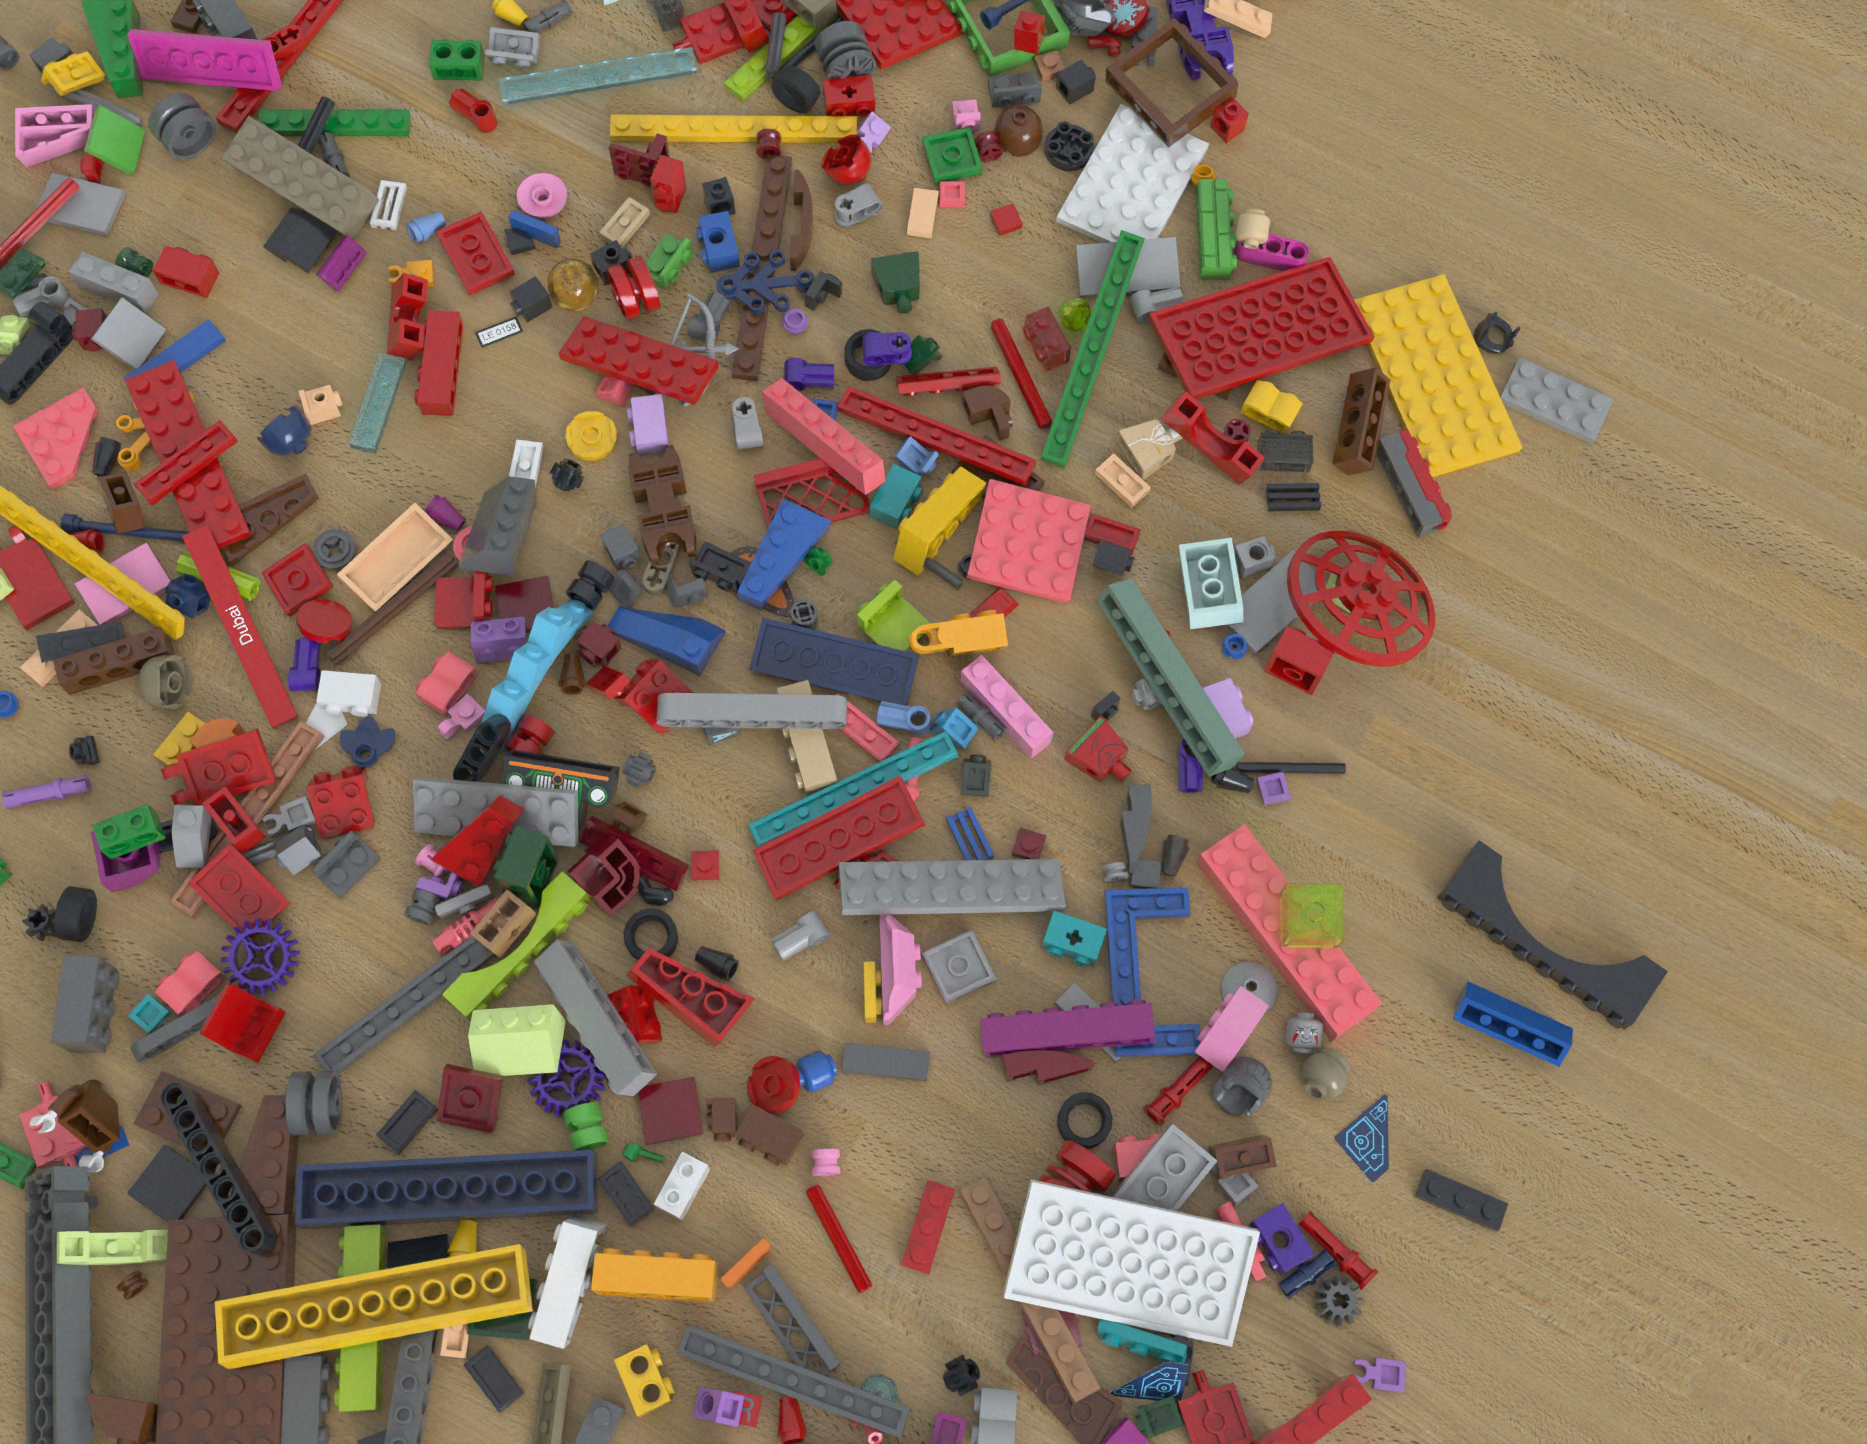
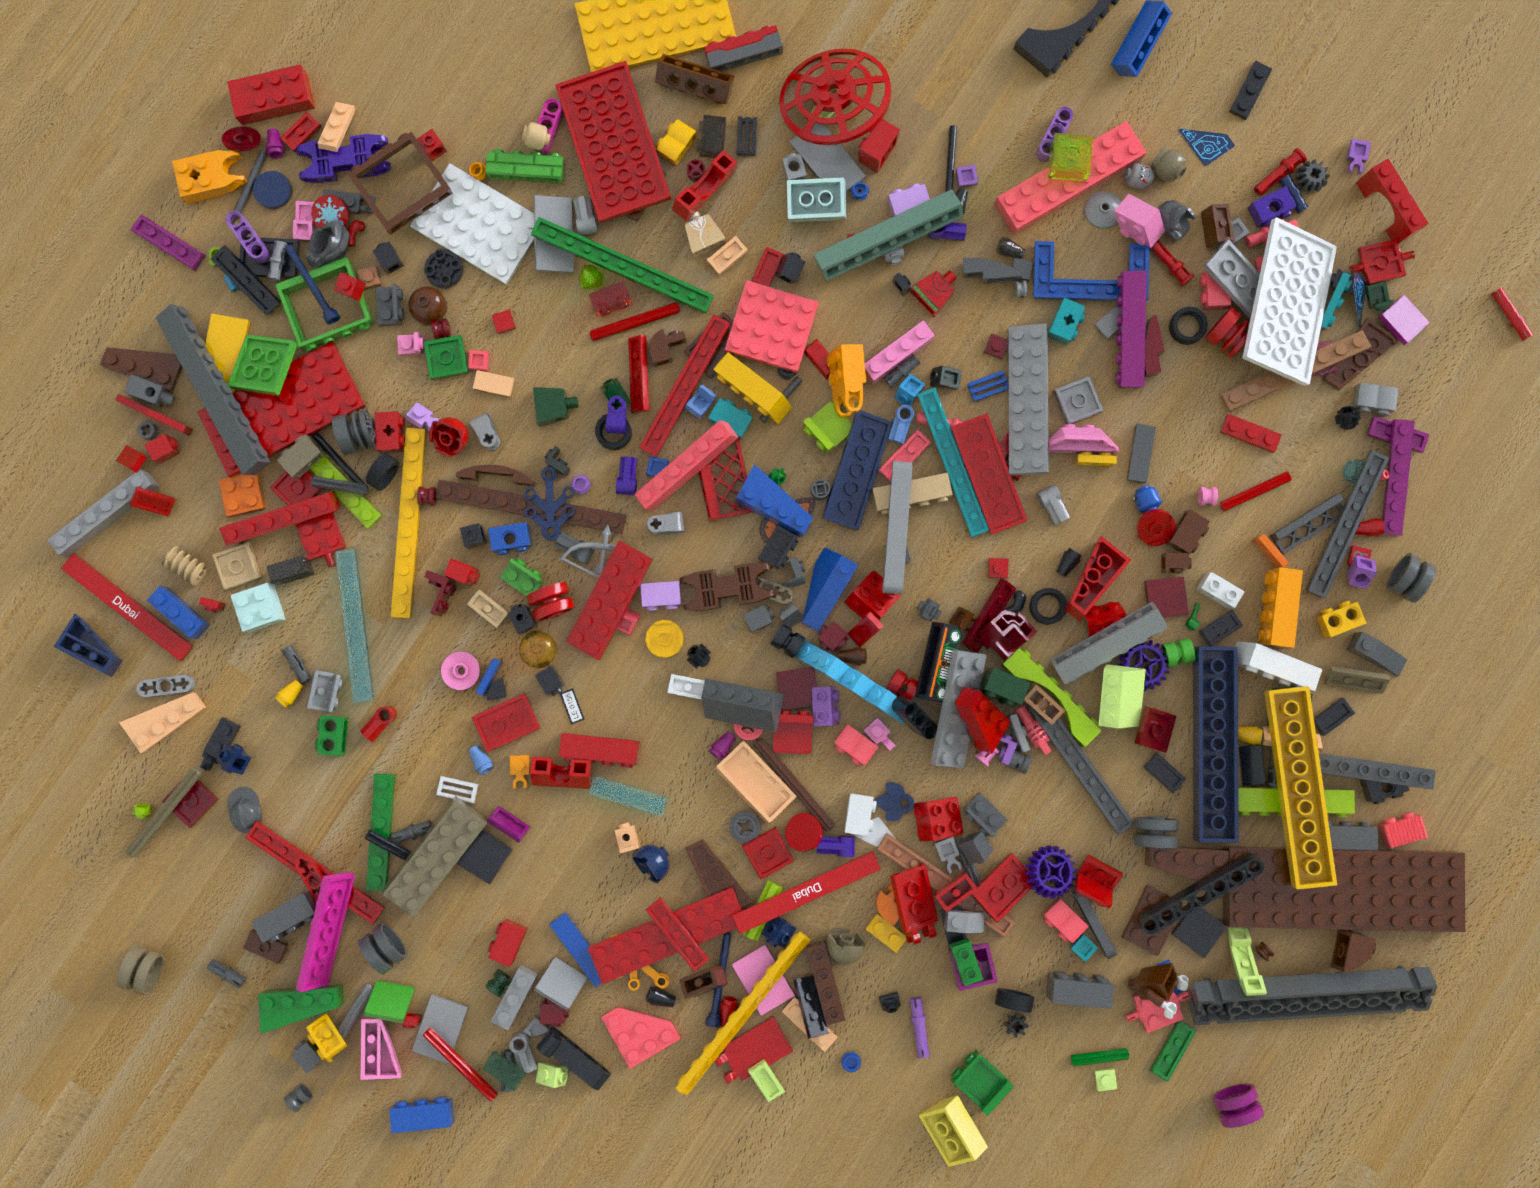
camera: 80 degrees left, 15 degrees up
(1365, 909) = (1057, 125): none -> medium lavender beam

